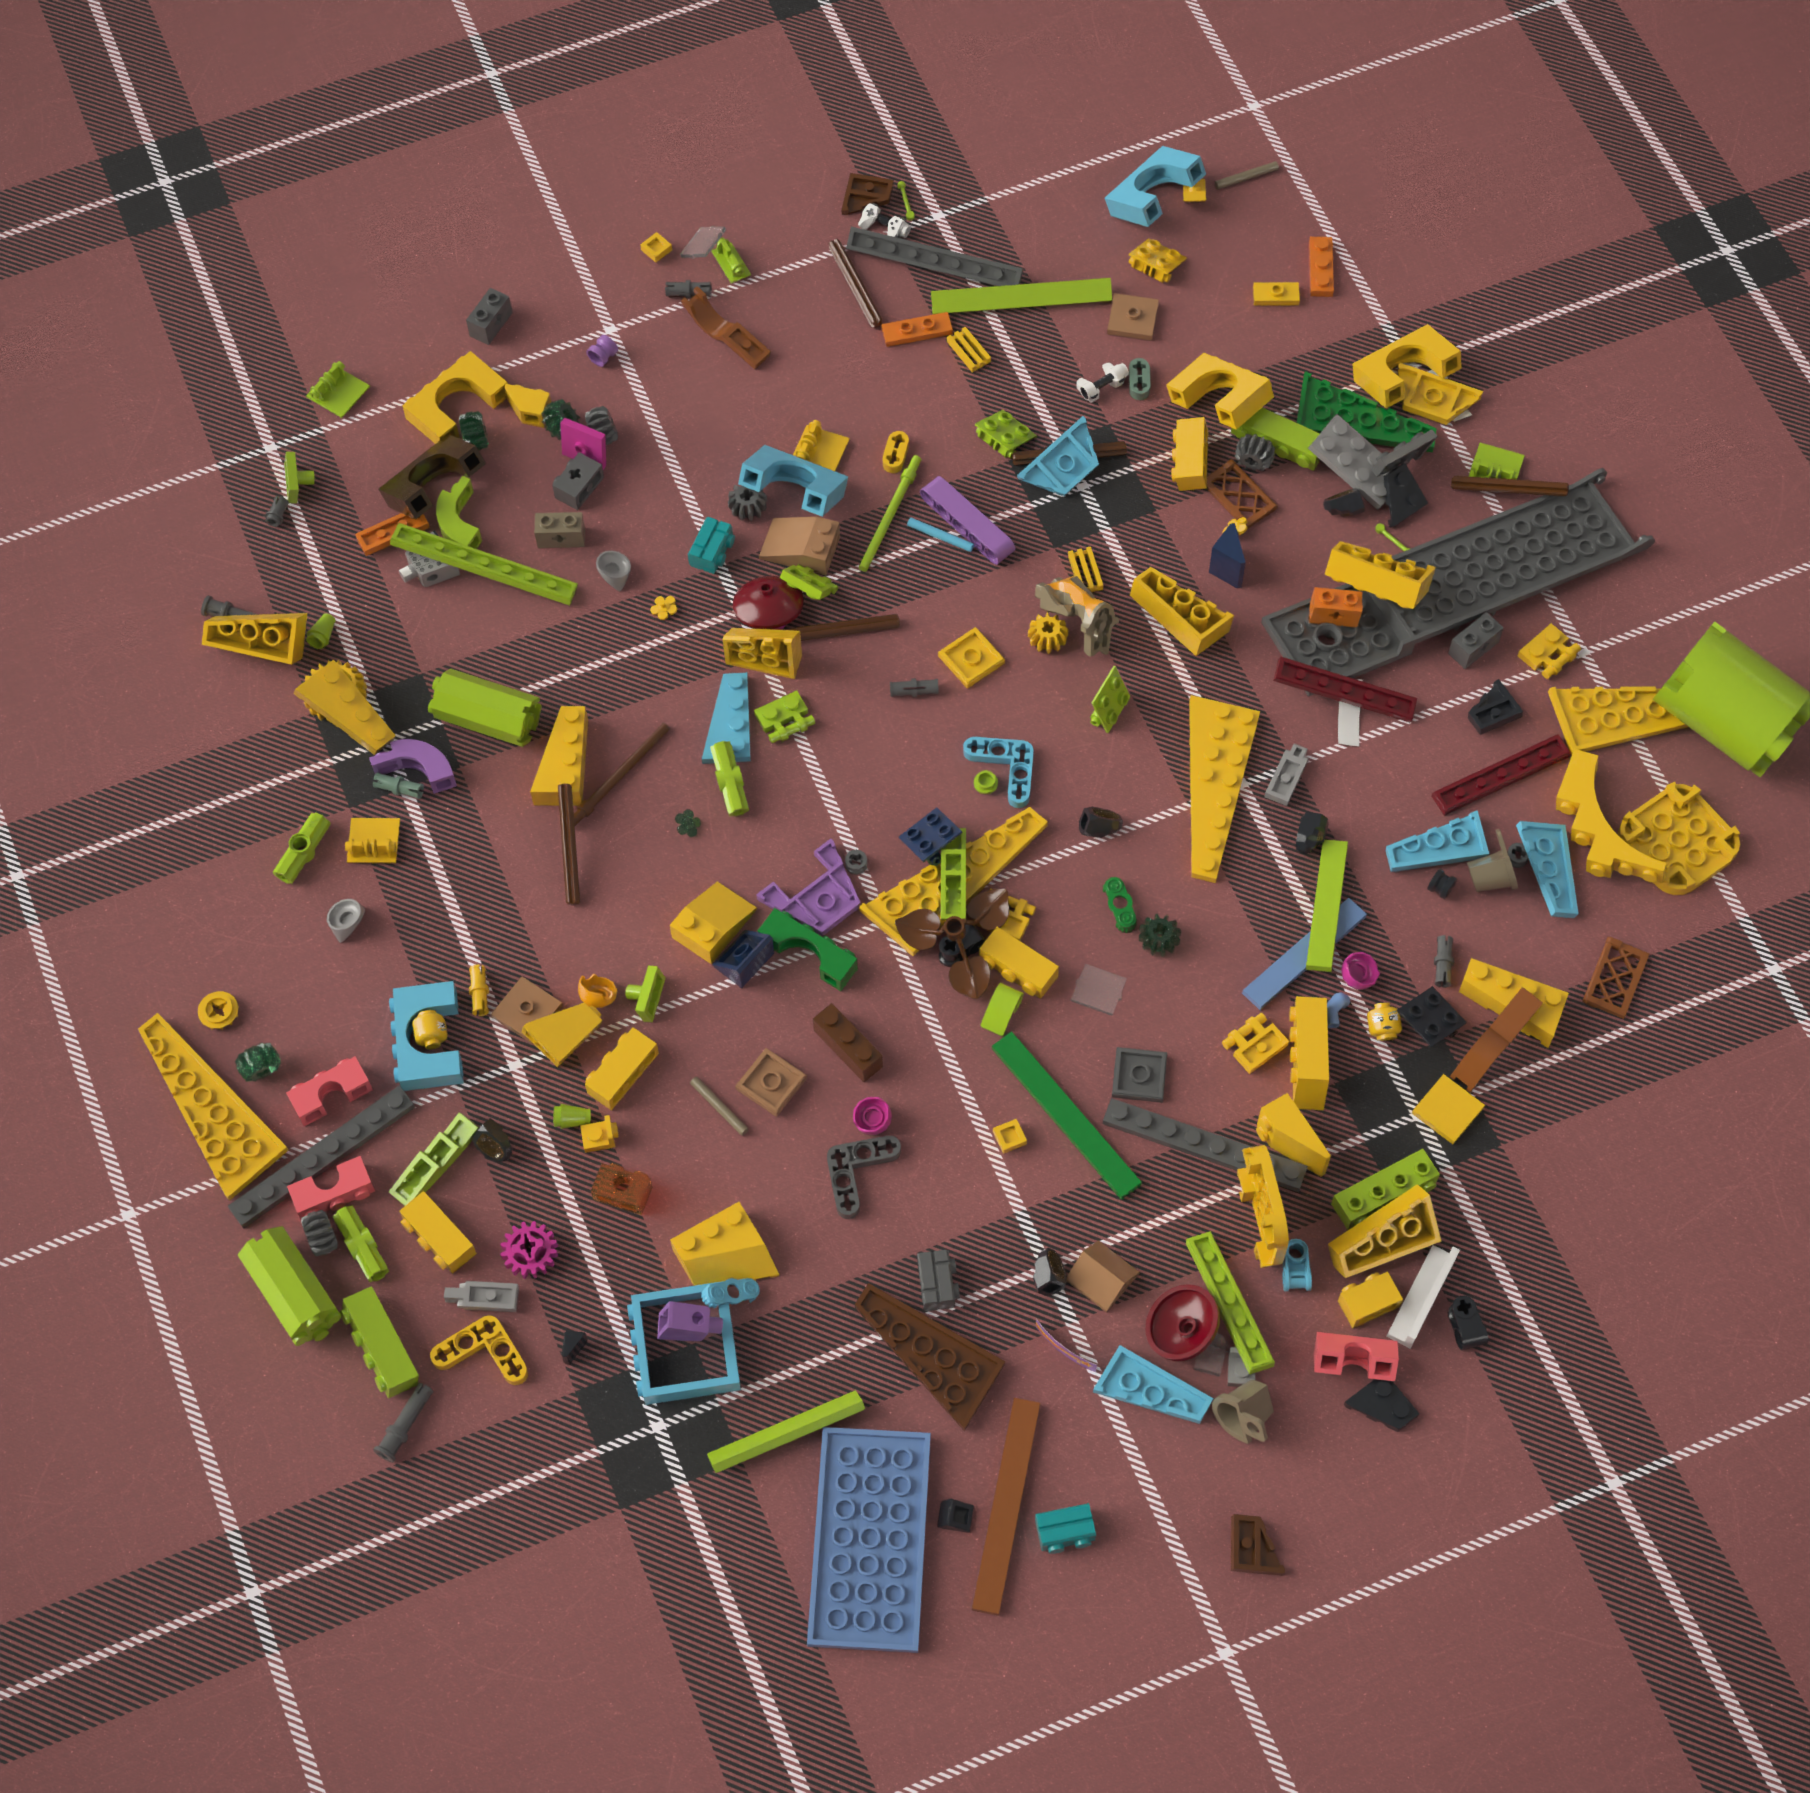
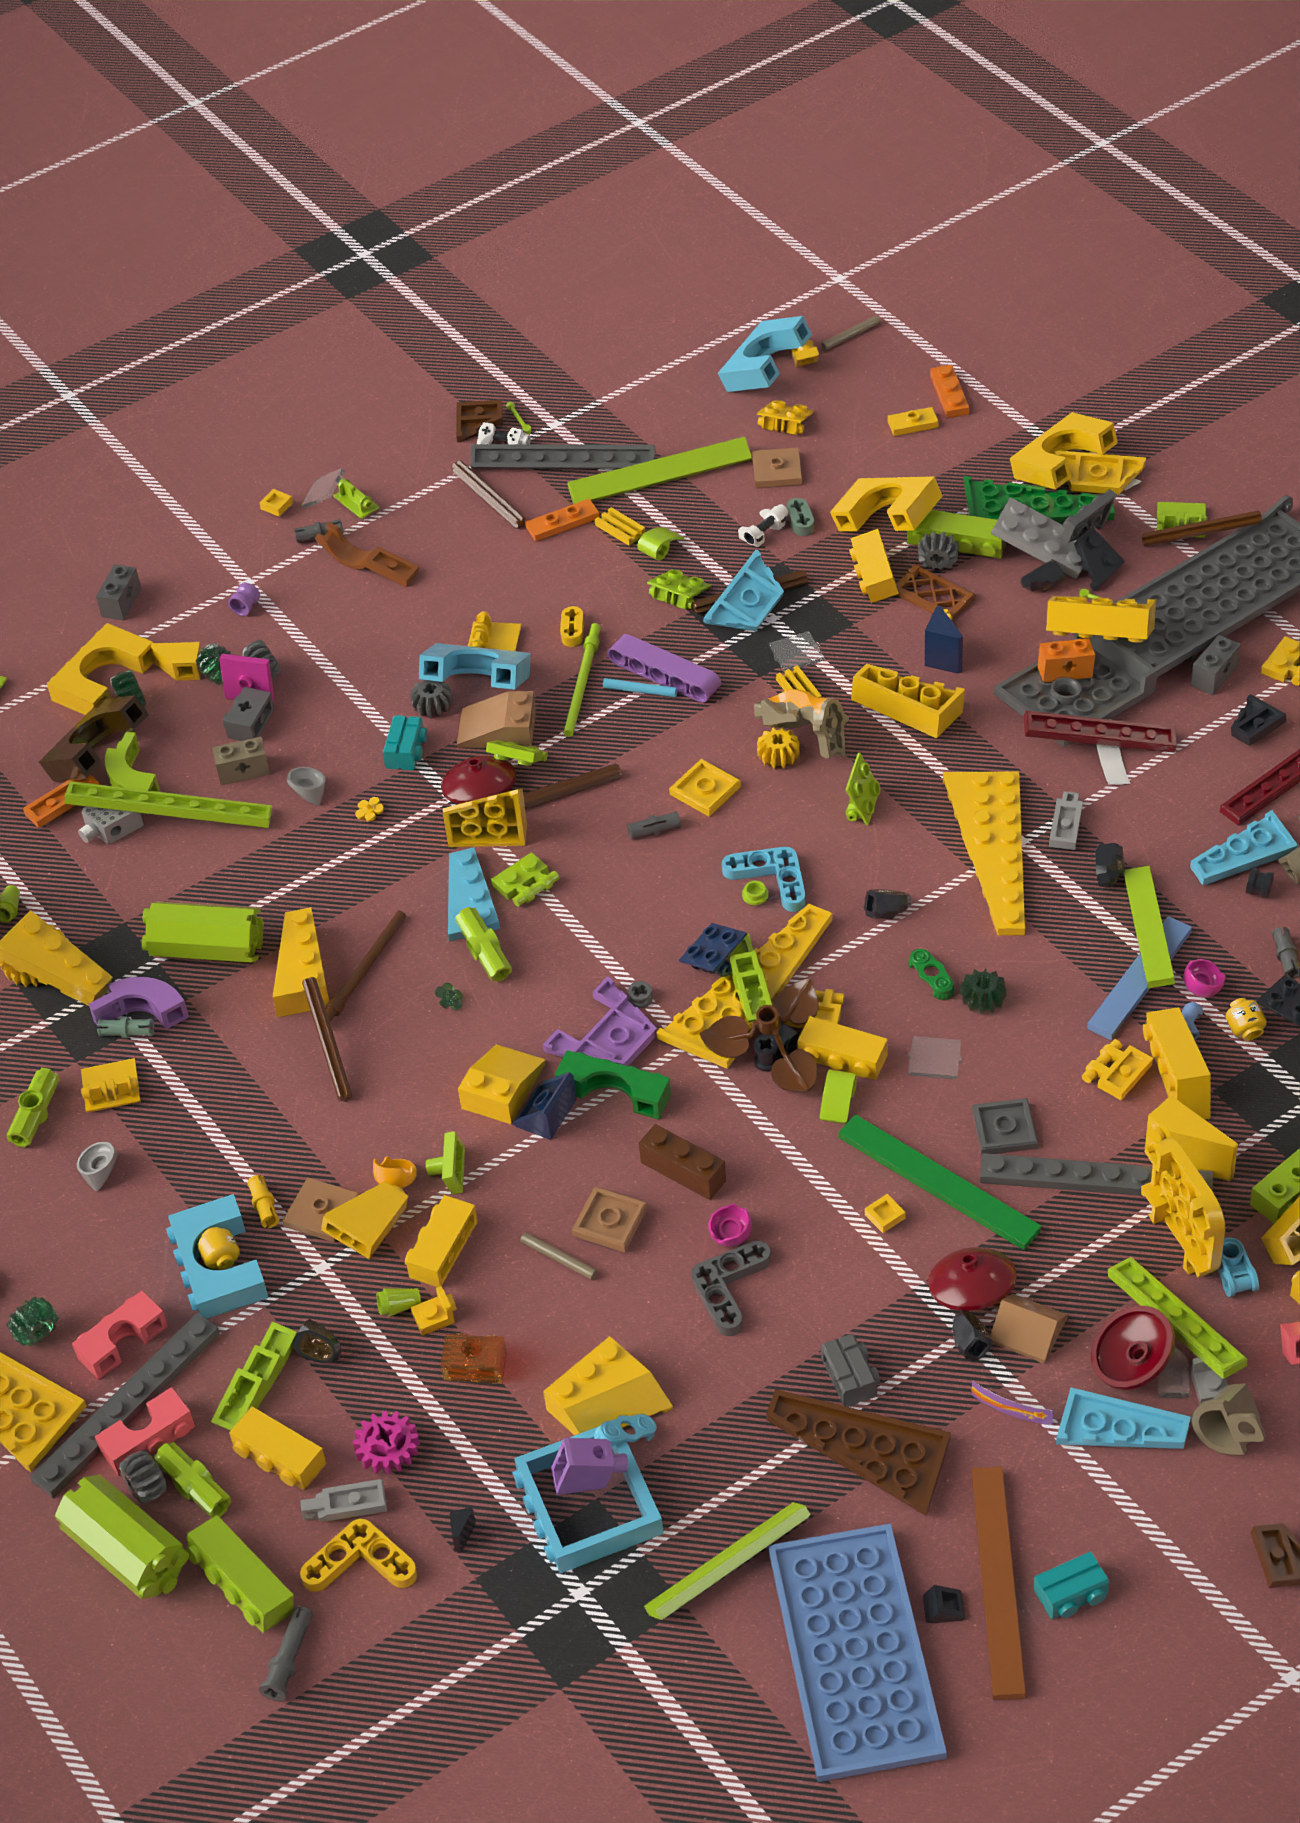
camera: 10 degrees left, 15 degrees down
(997, 376) = (657, 542): none -> lime panel
(1066, 1229) = (972, 1279): none -> dark red dish
(1094, 529) = (796, 650): none -> clear piece

